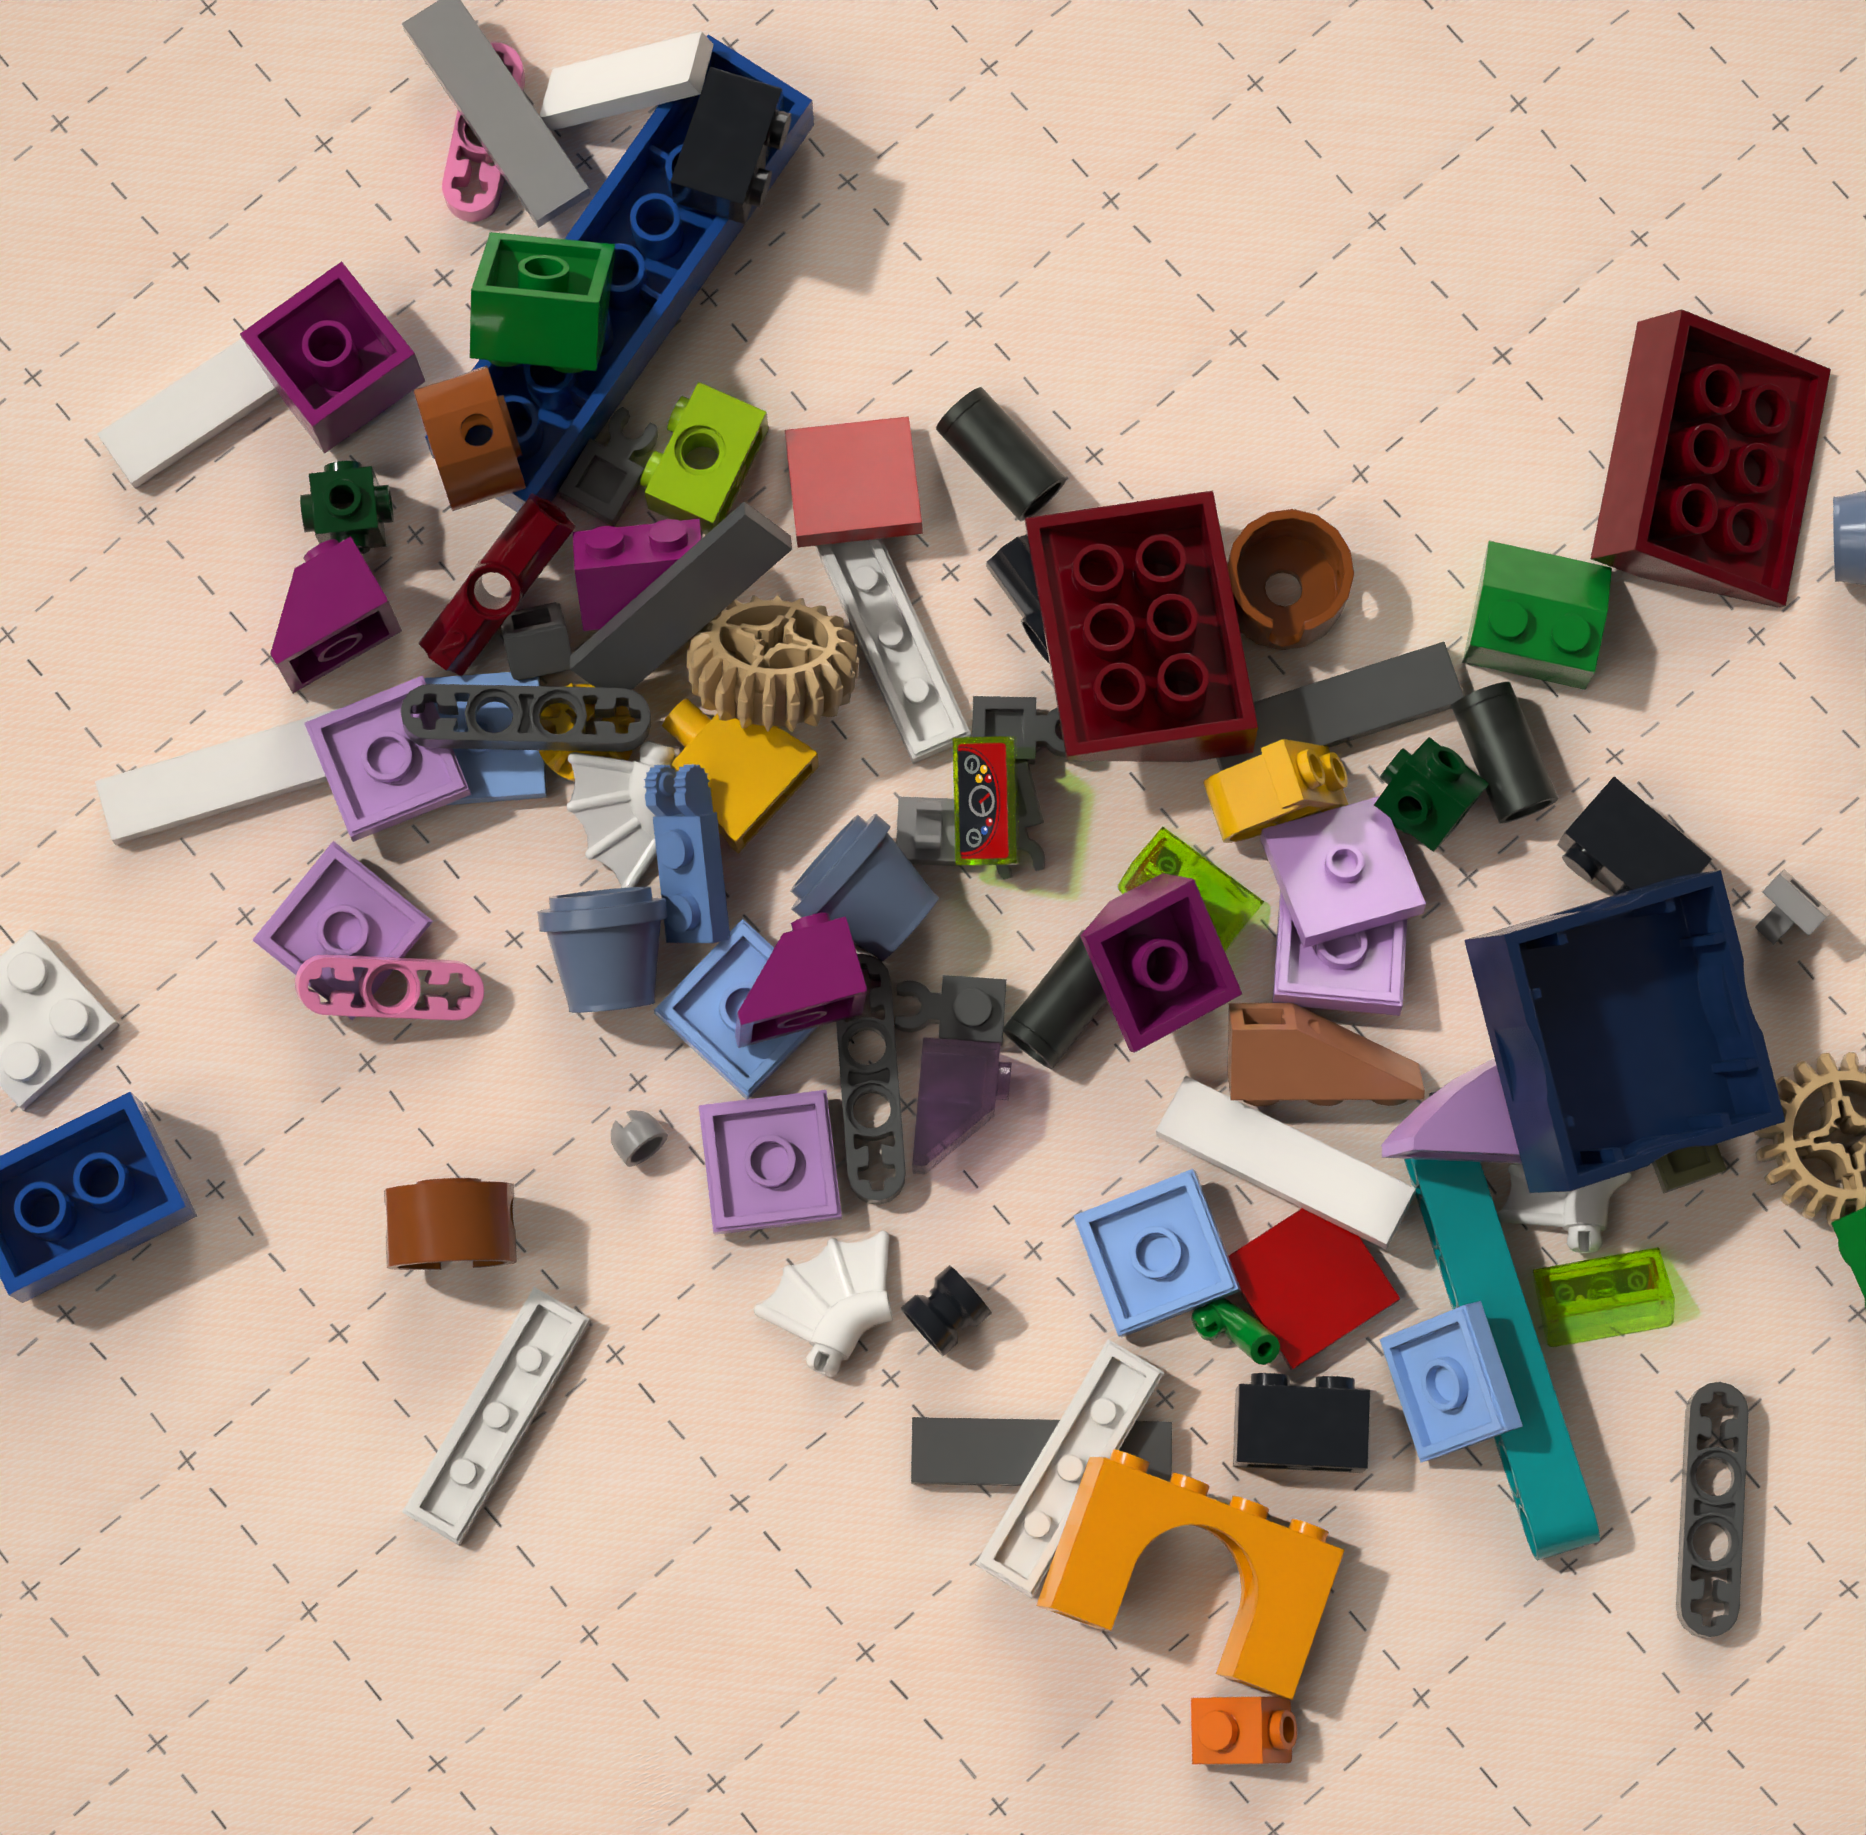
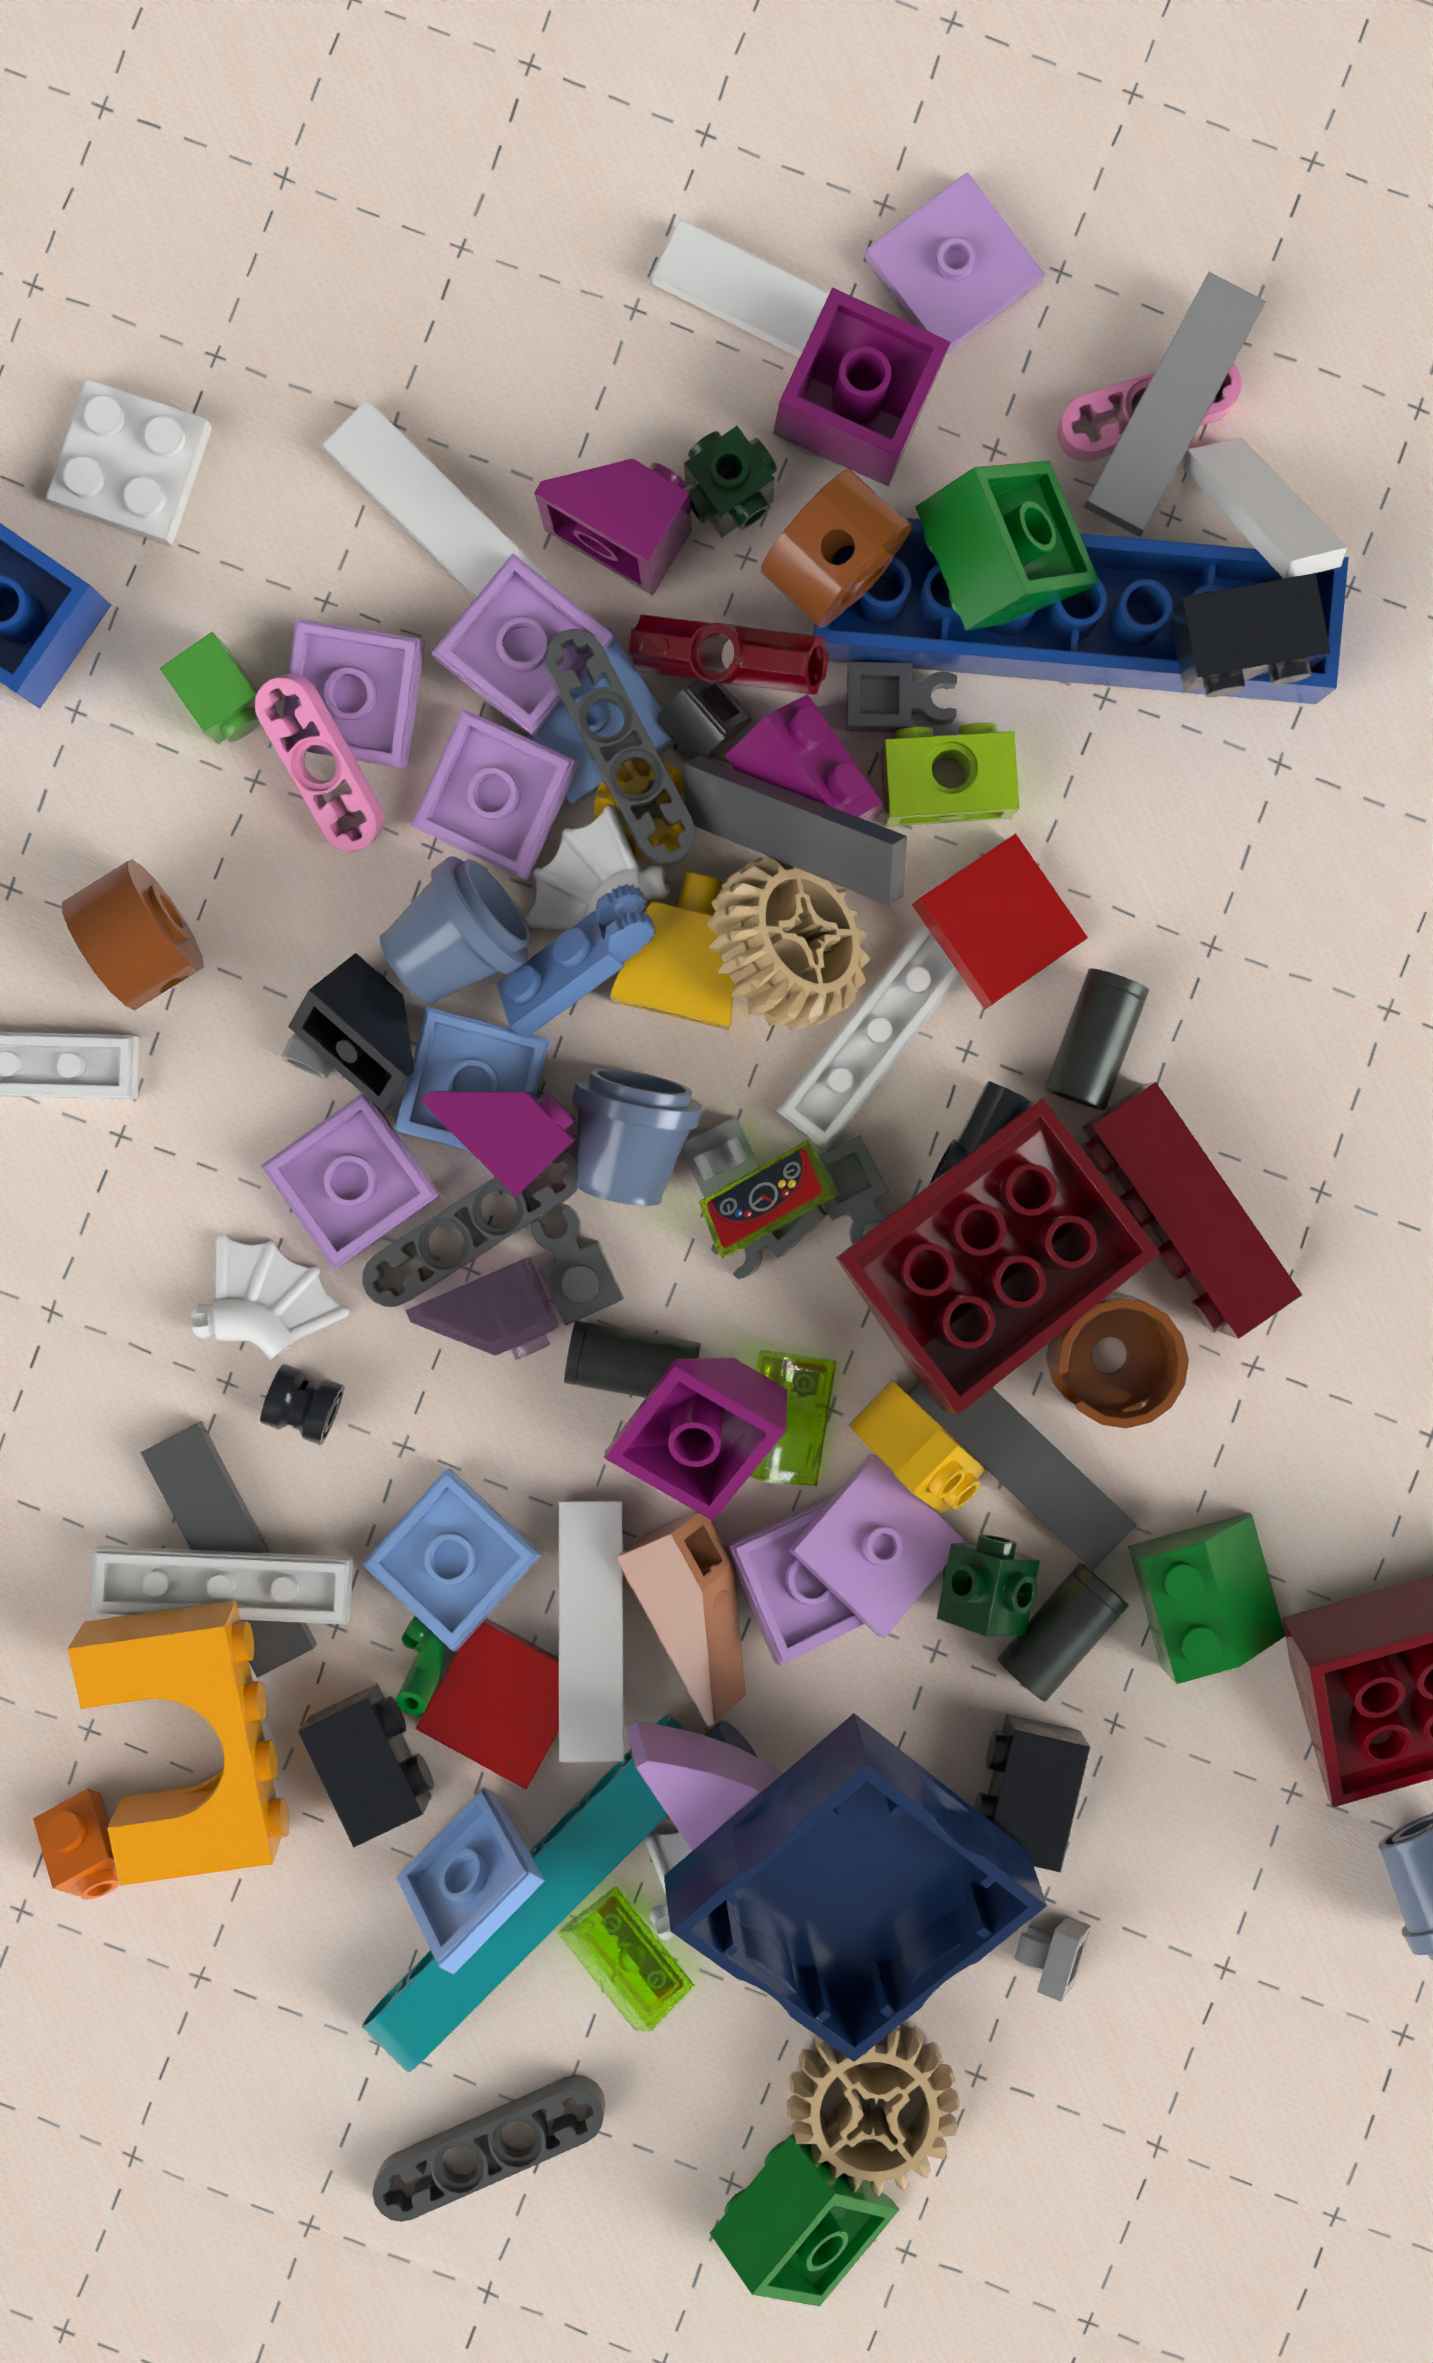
camera: 60 degrees right, 10 degrees up
(267, 227) = (954, 263): none -> lavender plate
(273, 1045) = (214, 689): none -> bright green brick
(501, 853) = (495, 794): none -> lavender plate
(646, 1074) = (359, 1029): none -> black slope
(1194, 451) = (1190, 1211): none -> dark red brick

